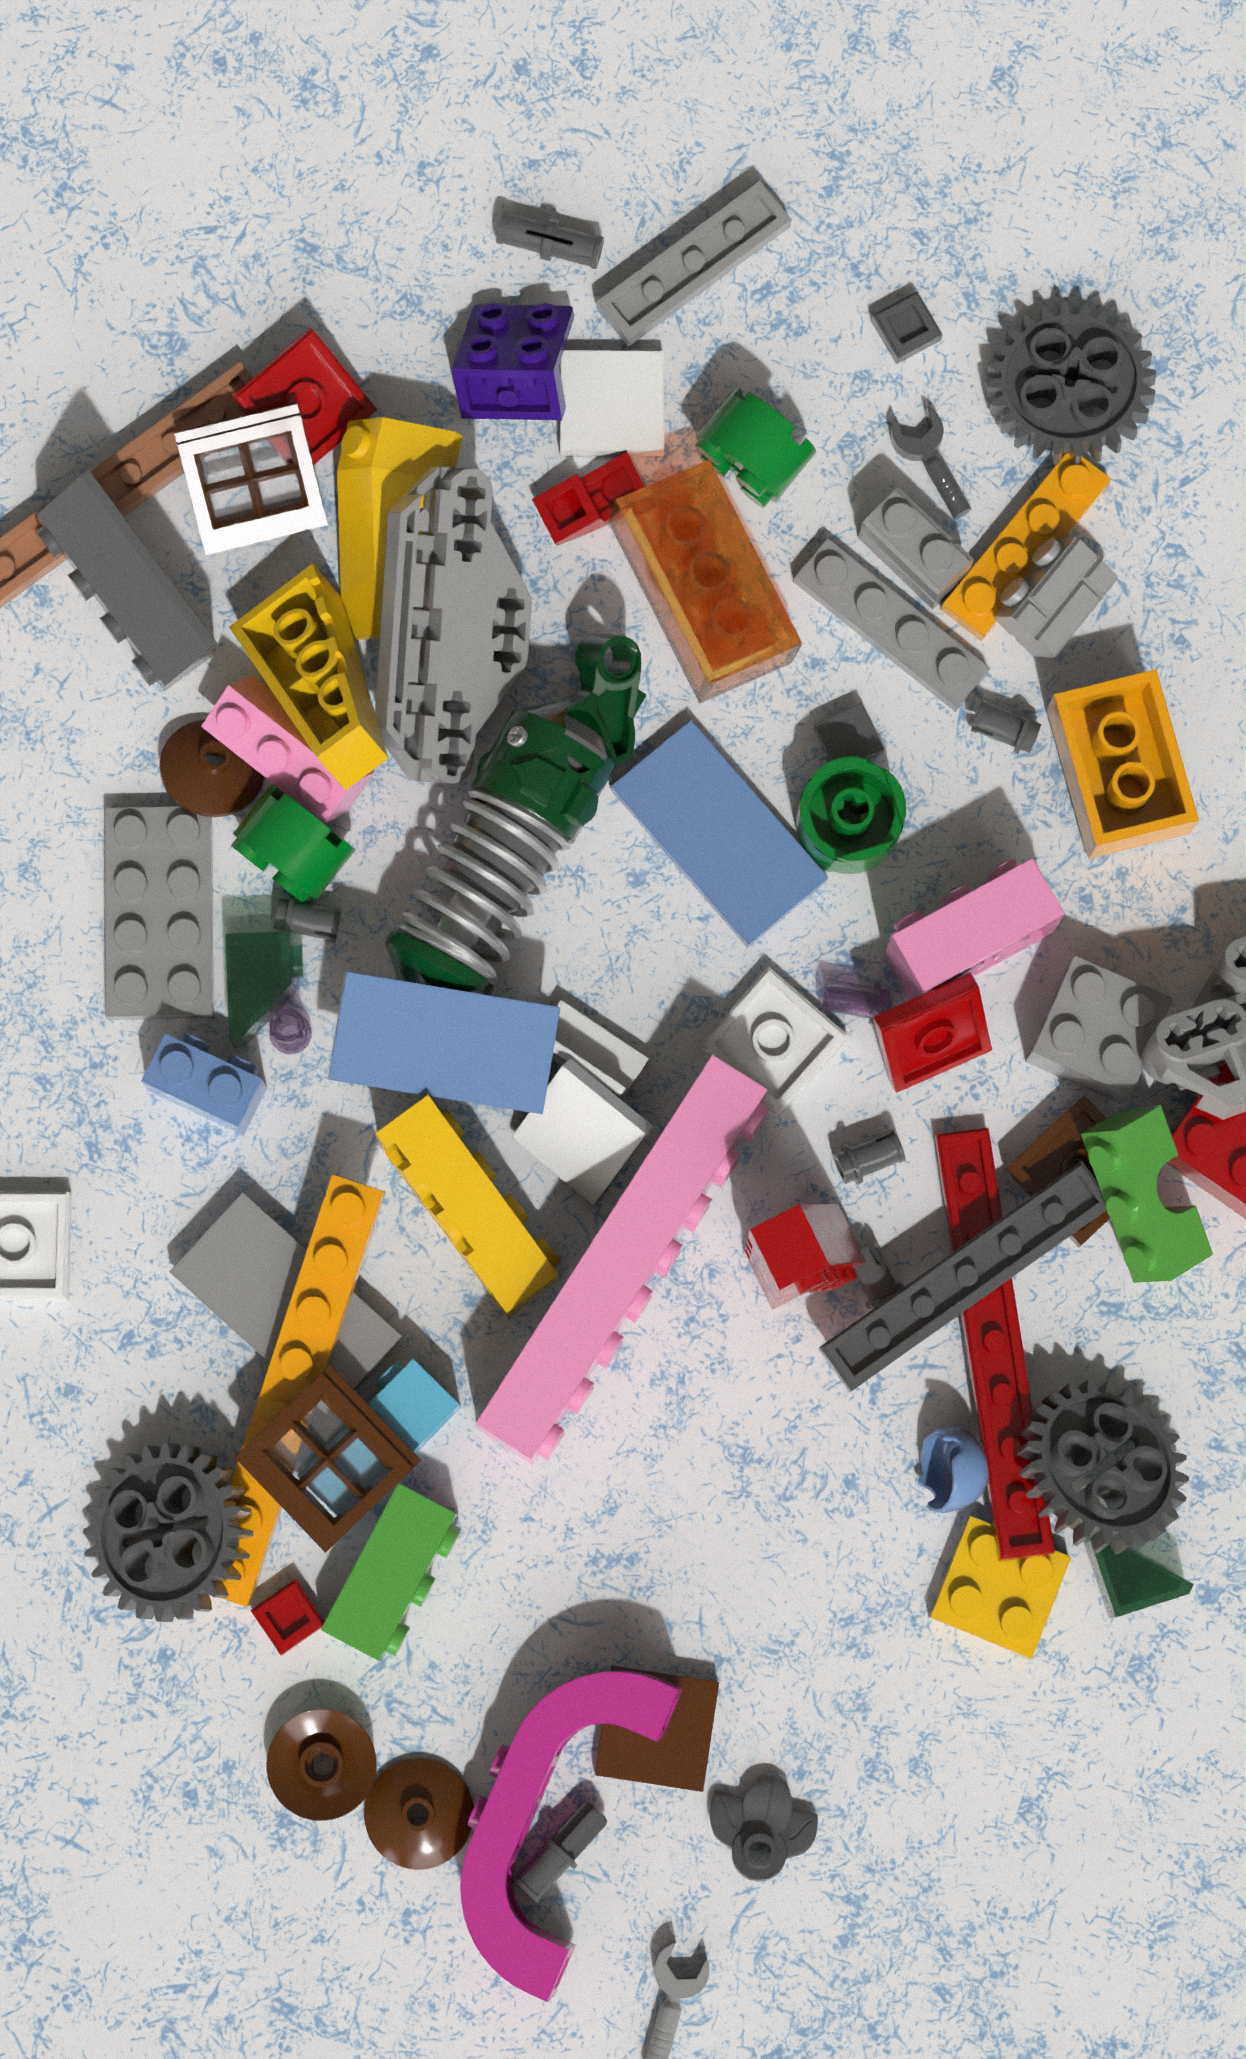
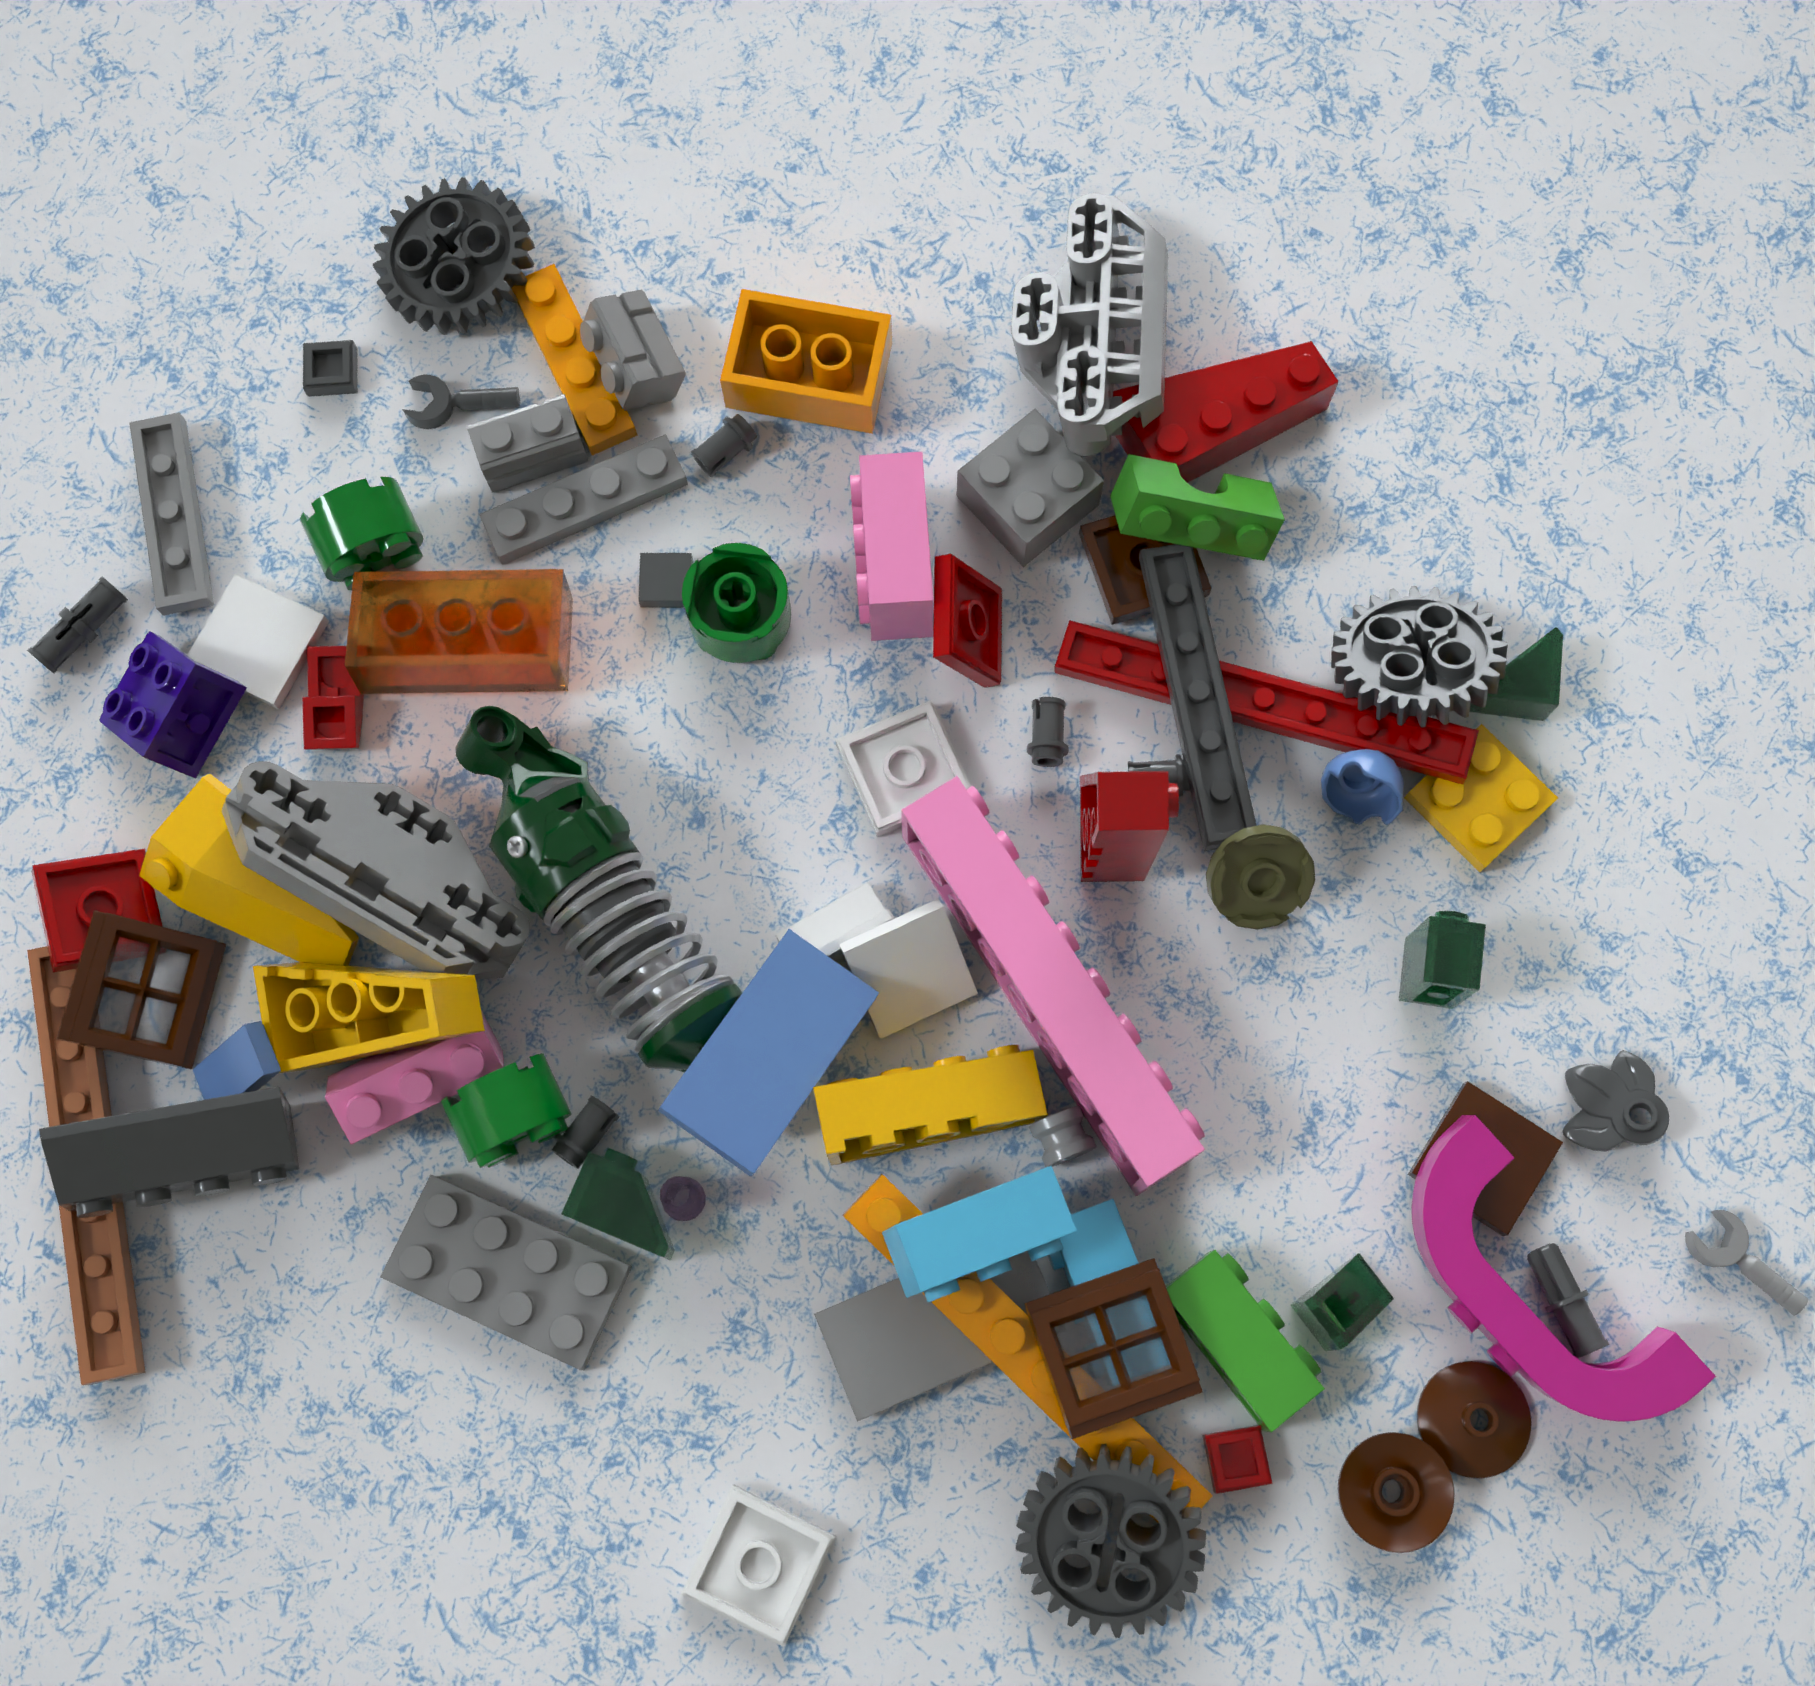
camera: 60 degrees left, 5 degrees down
(200, 785) = (404, 1174): reddish brown dish -> none
(203, 1083) = (691, 1303): medium blue brick -> none
(222, 595) = (238, 1064): none -> medium blue tile
(368, 1298) = (980, 1234): none -> medium azure brick
(467, 1652) = (1342, 1304): none -> clear green slope
(497, 1338) = (1062, 1136): none -> light grey wheel
(719, 833) = (693, 728): medium blue tile -> none
(815, 1606) = (1442, 960): none -> clear green brick
(818, 1410) = (1260, 876): none -> olive tile
(855, 999) = (903, 678): clear purple pin -> none

